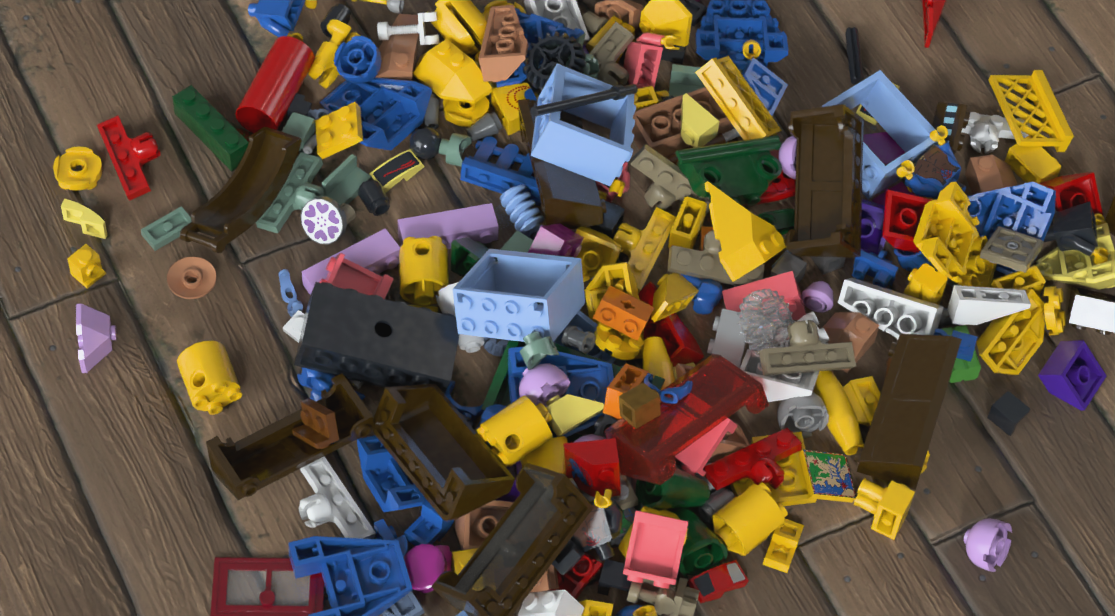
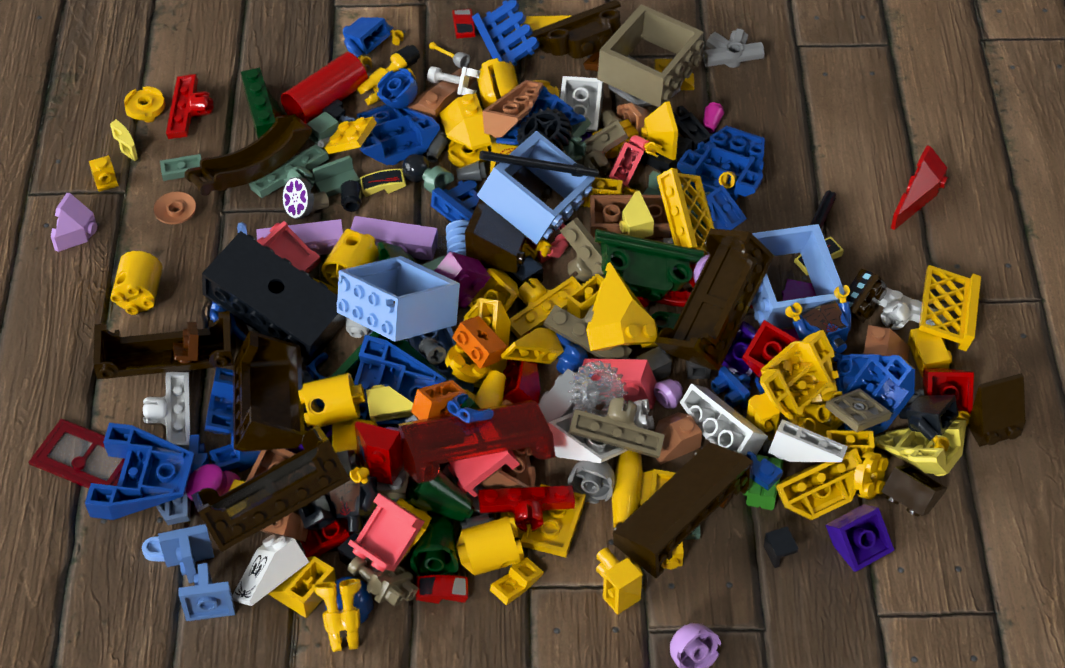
camera: 30 degrees right, 5 degrees down
(537, 349) = (377, 340): sand green piece -> none
(543, 383) = (375, 370): lavender cylinder -> none
(639, 405) = (434, 412): pearl gold brick -> none
(827, 476) = (585, 537): tile -> none

